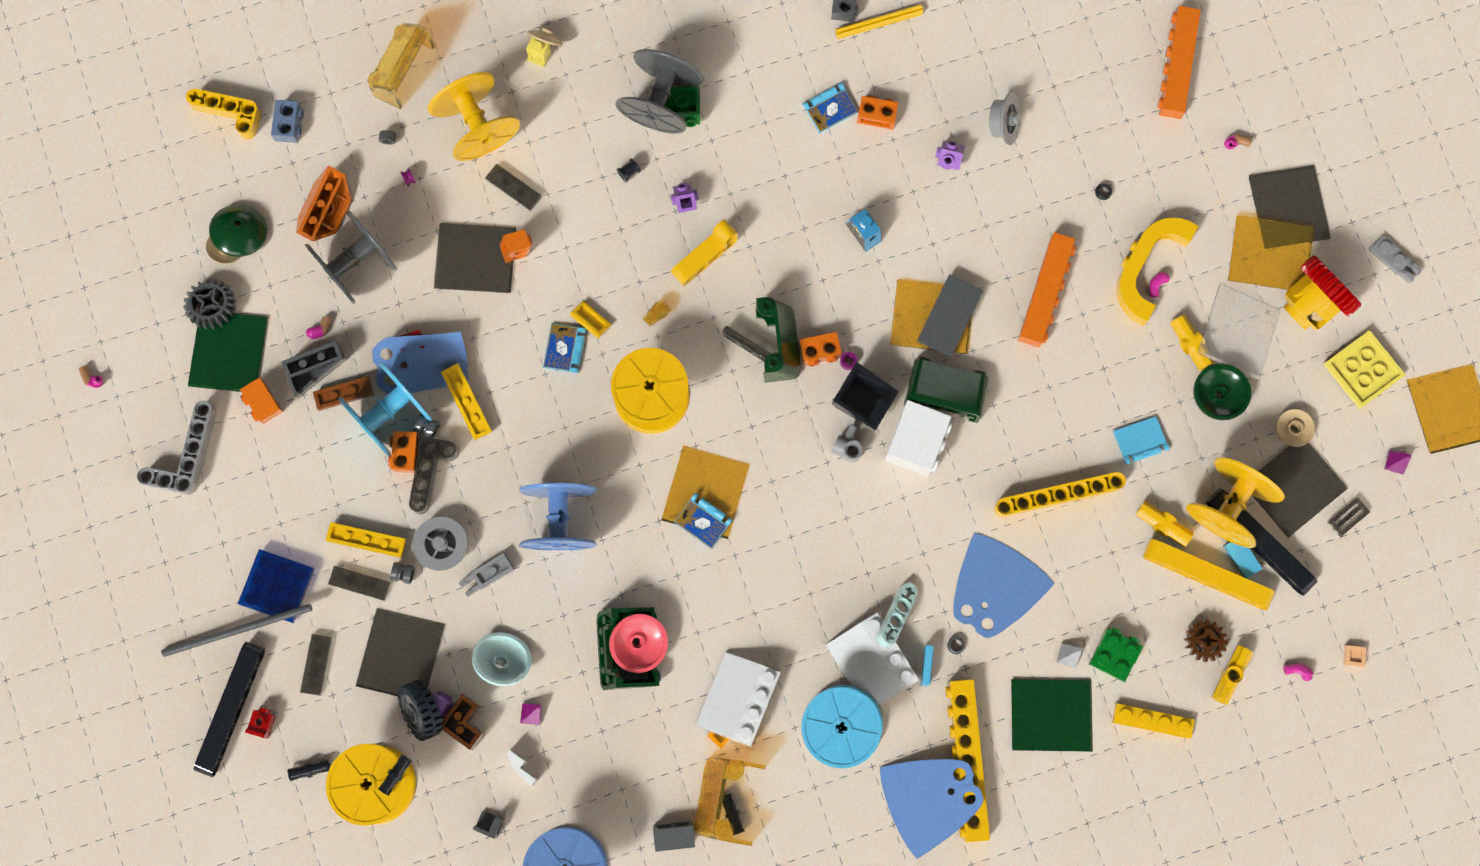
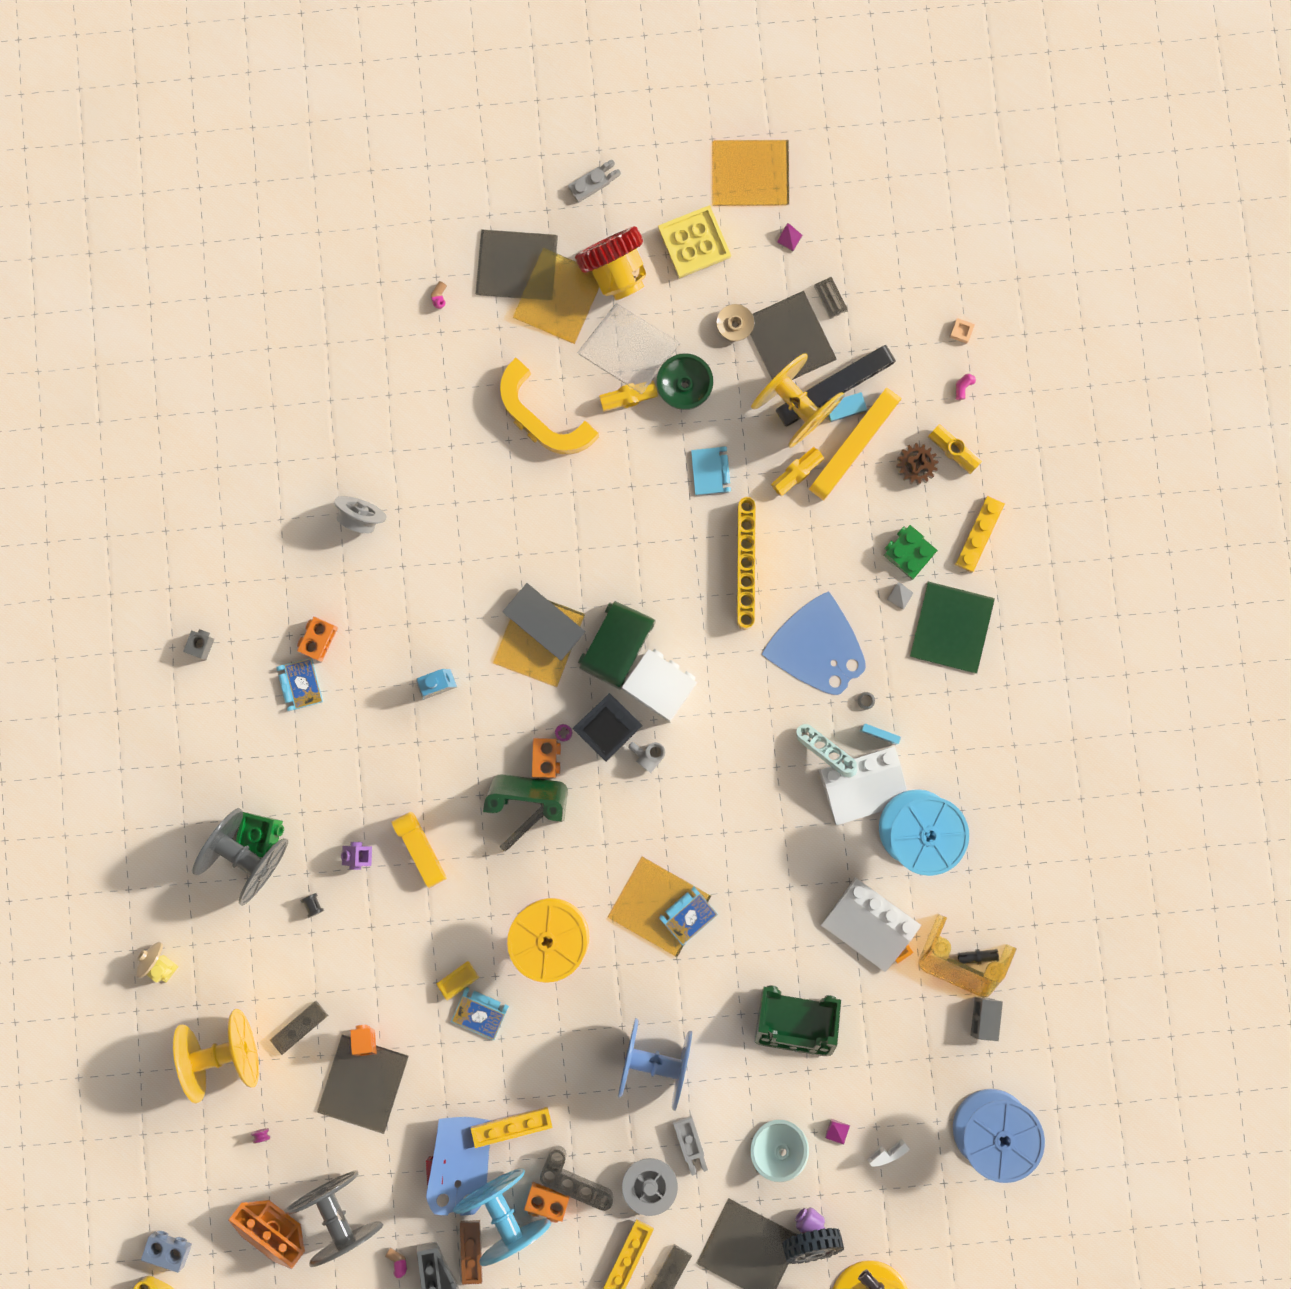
camera: 70 degrees left, 5 degrees up
(387, 137) = (212, 1148): dark grey axle -> none
(397, 61) = (133, 1121): clear yellow windscreen -> none
(402, 572) = (669, 1231): dark grey wheel -> none
(426, 427) = (531, 1172): dark grey wheel -> none
(457, 722) = (833, 1208): reddish brown brick -> none
(489, 824) = (935, 1198): dark grey panel -> none
(647, 652) = (807, 1008): coral dish -> none
(656, 313) = (467, 911): clear yellow cone -> none
(879, 21) = (222, 612): yellow axle -> none
(921, 801) = (1008, 772): medium blue piece -> none
(950, 155) = (381, 578): medium lavender brick -> none
(967, 690) = (1047, 725): yellow brick -> none
(1046, 290) = (541, 520): orange brick -> none
(1103, 185) = (455, 432): black piece -> none
(1157, 281) = (559, 412): dark pink arm -> none
(1179, 62) = (344, 328): orange brick -> none

